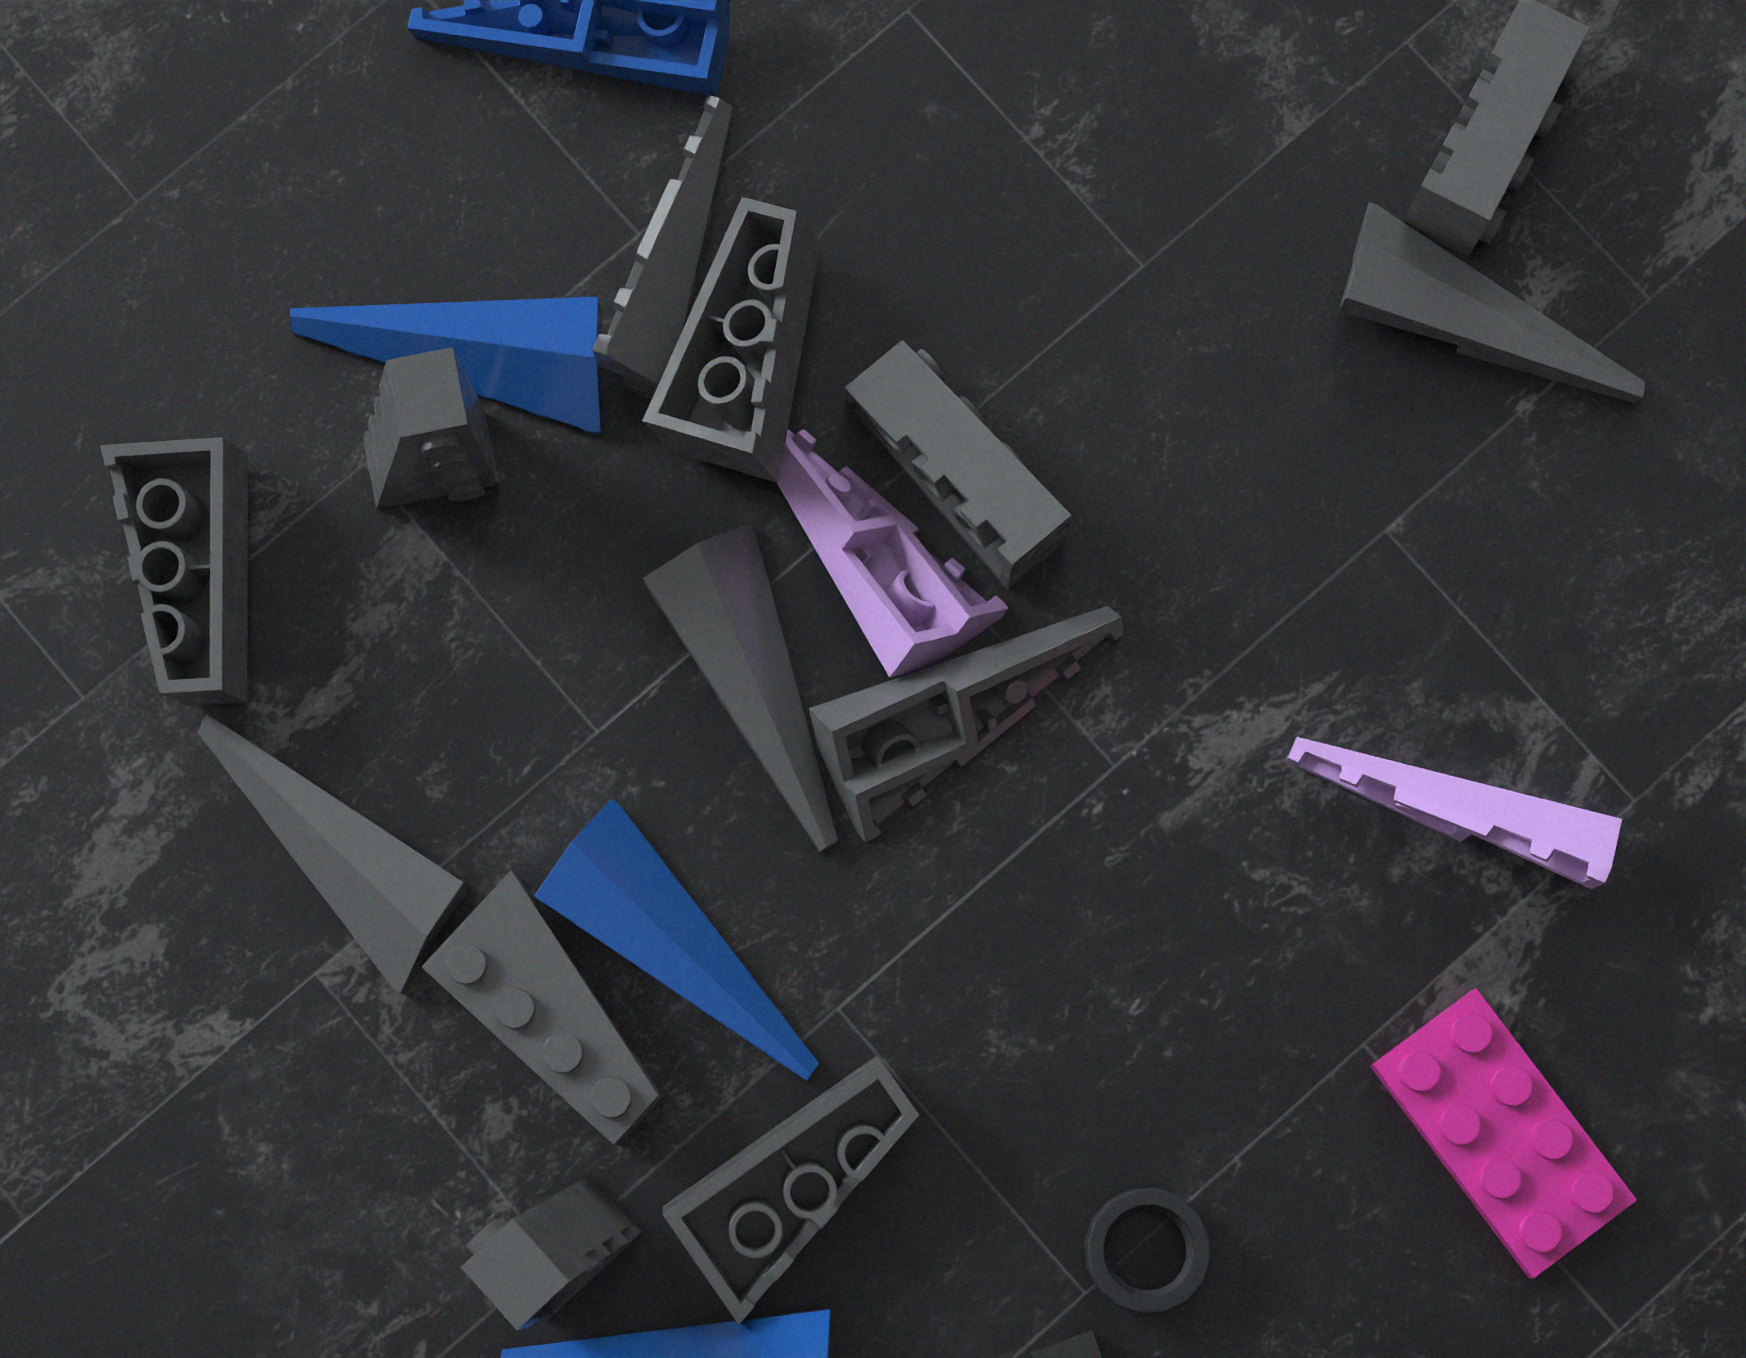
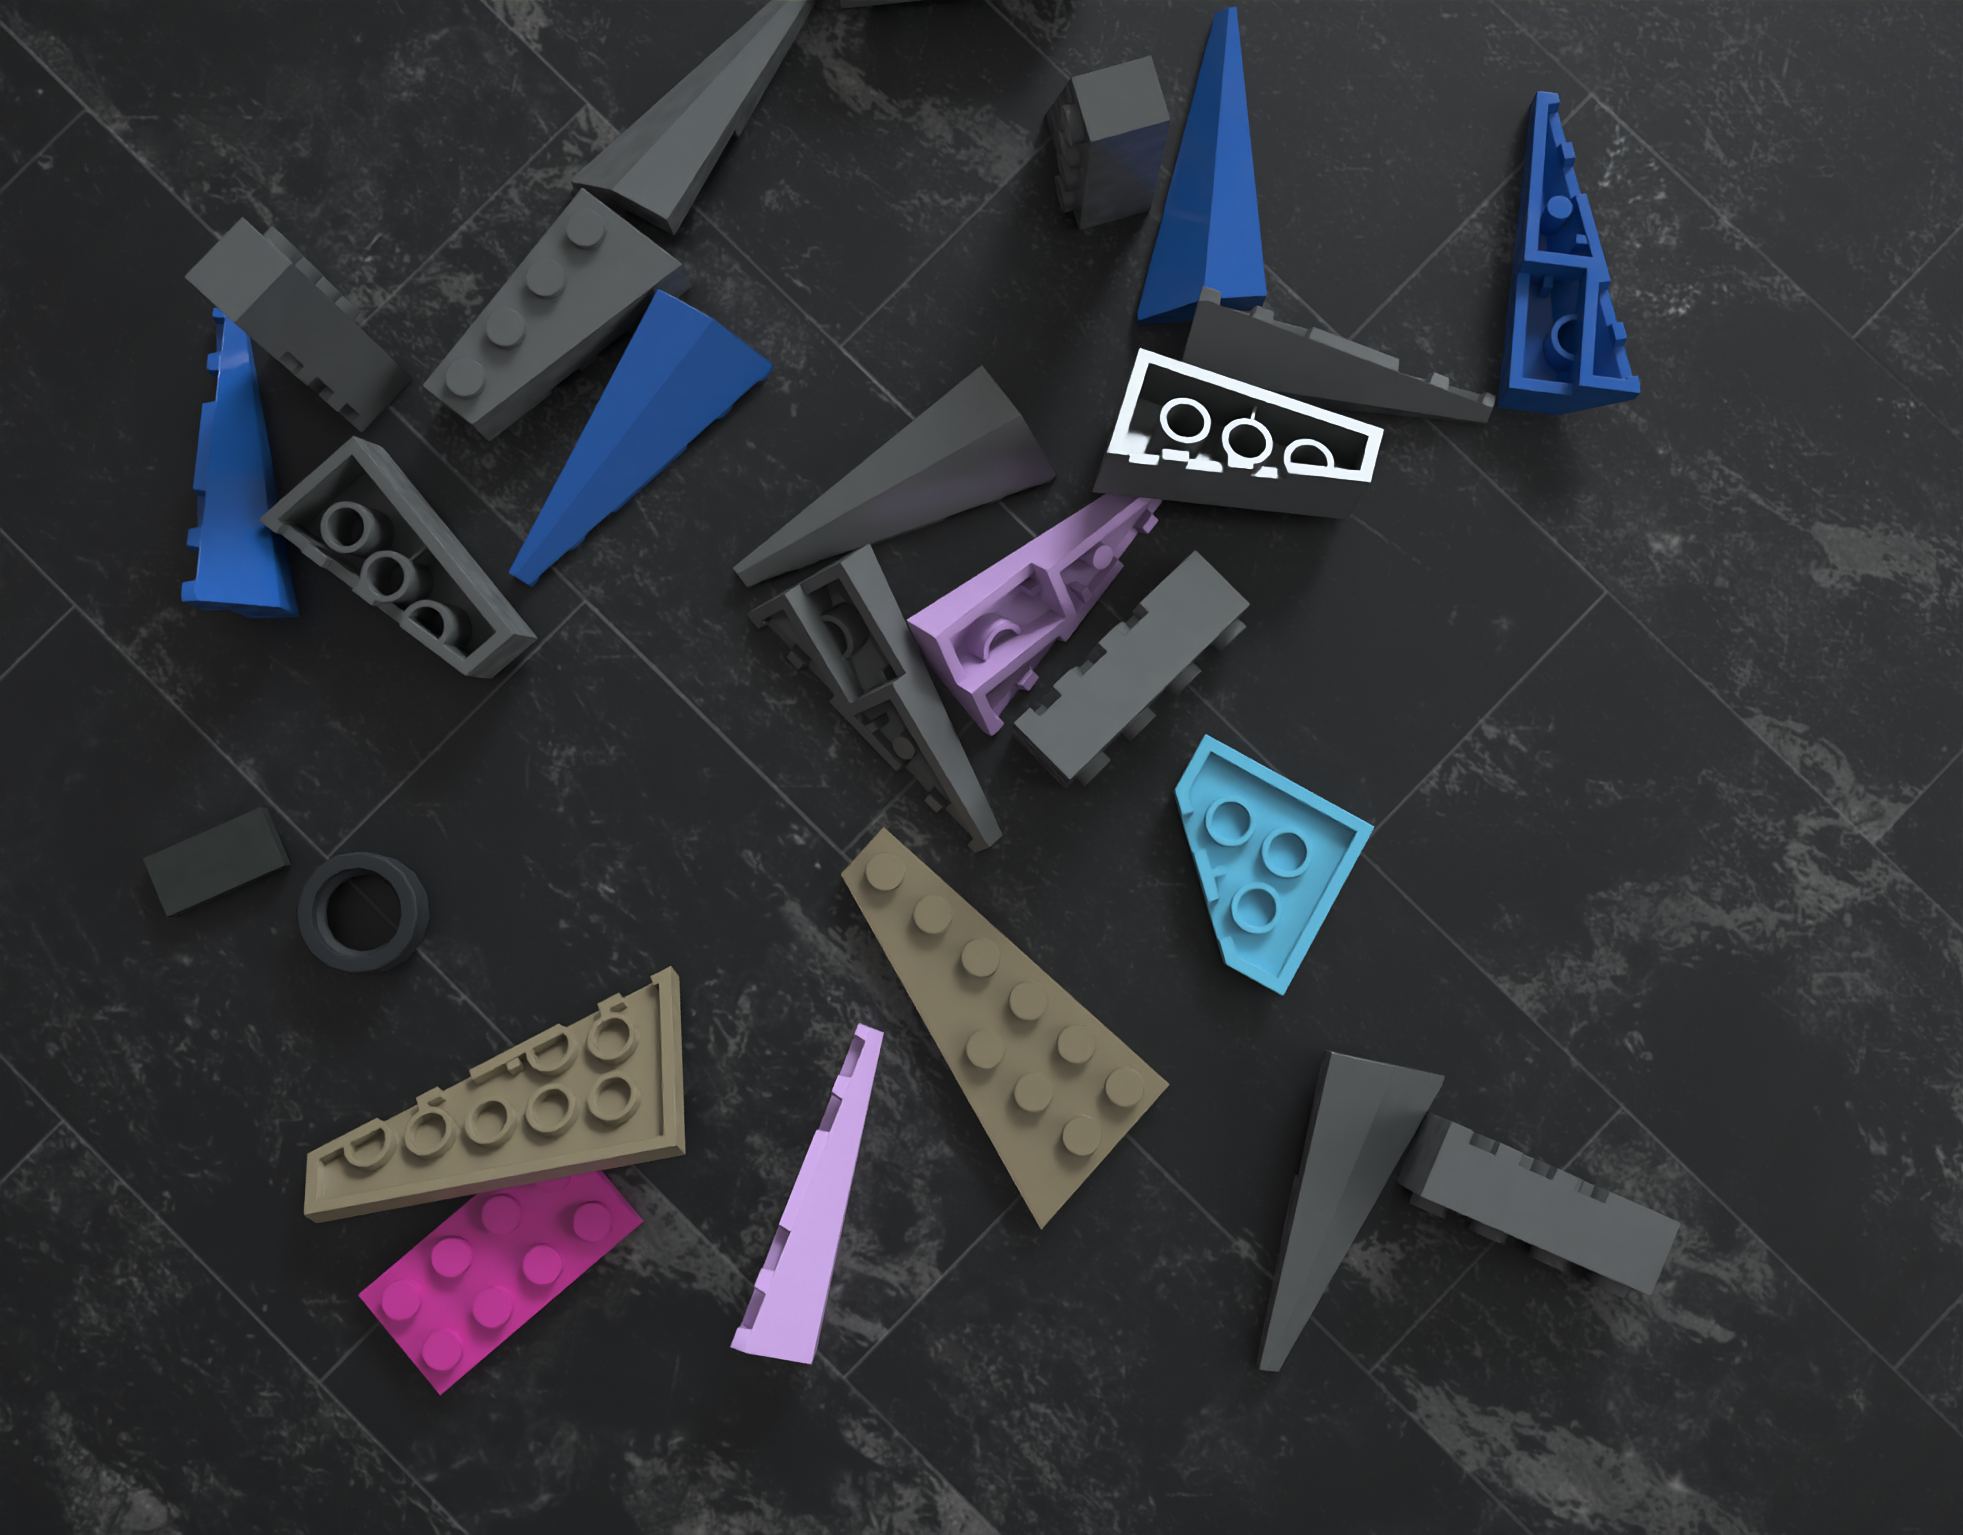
camera: 85 degrees right, 5 degrees up
(1149, 353) = (1263, 859): none -> medium azure plate
(1320, 601) = (1024, 1051): none -> dark tan wing
(1359, 1076) = (536, 1113): none -> dark tan wing

